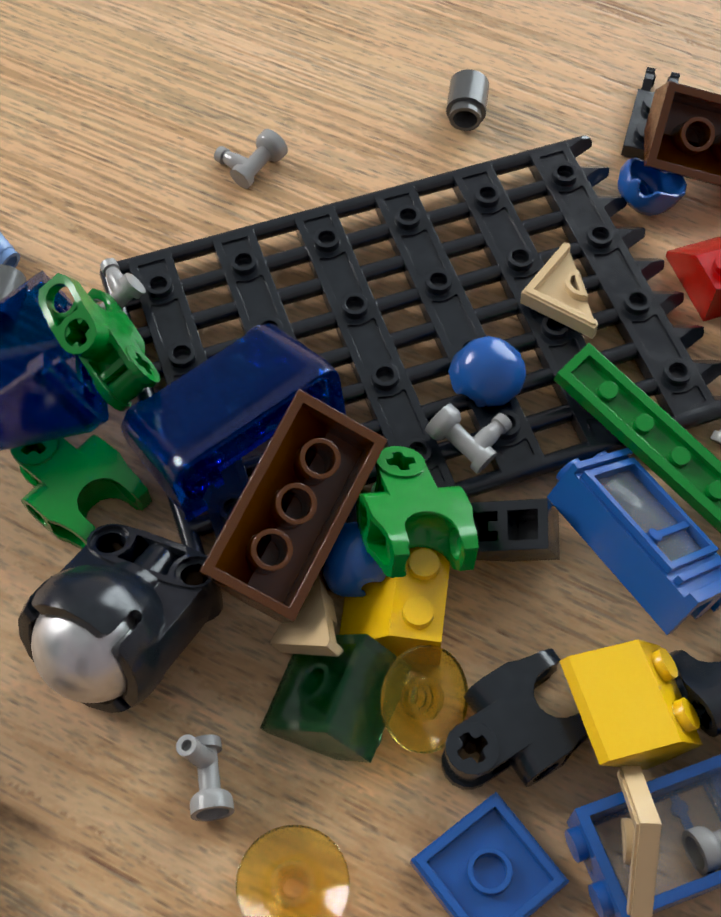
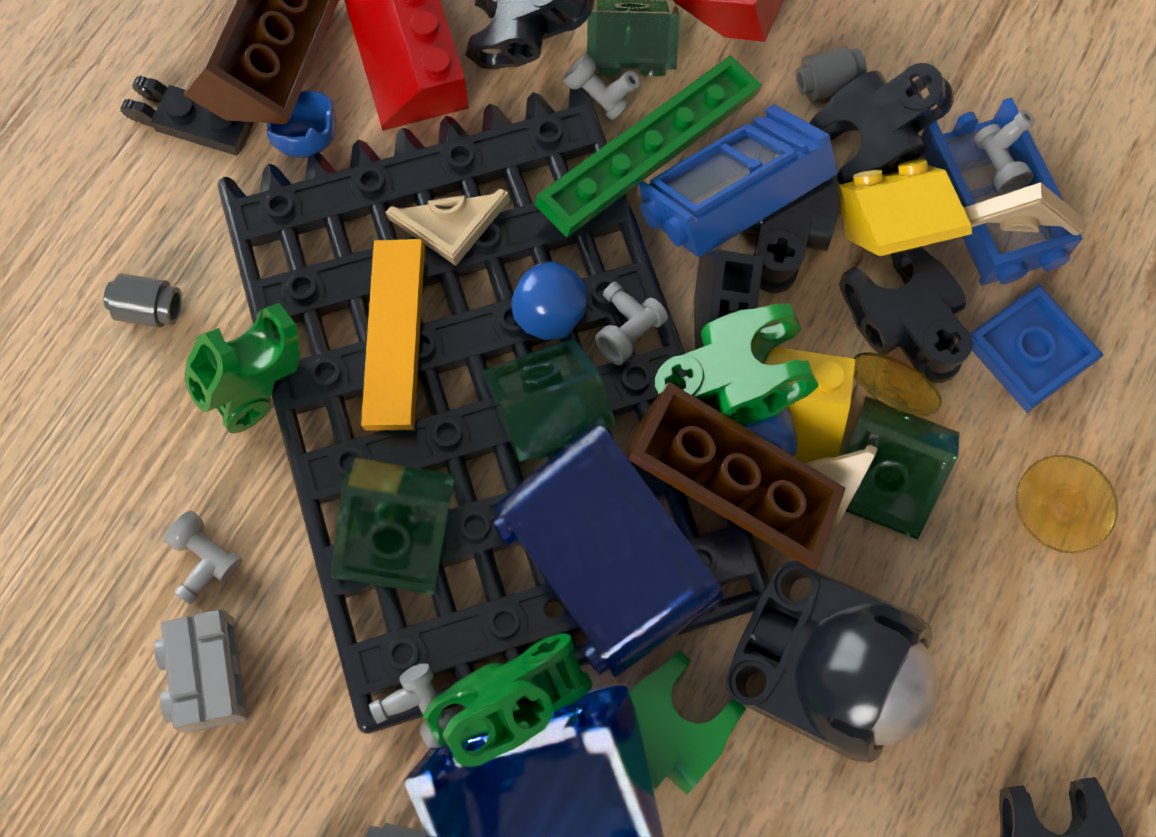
camera: 90 degrees left, 10 degrees up
(155, 165) = (201, 672): none -> light grey brick
(211, 801) = (995, 579): light grey piece -> none
(264, 258) = (392, 525): none -> clear green slope
(381, 365) = (548, 398): none -> clear green slope
(394, 145) = (241, 373): none -> green piece
(444, 255) = (393, 335): none -> light orange tile
(599, 602) = (790, 230): none -> black piece

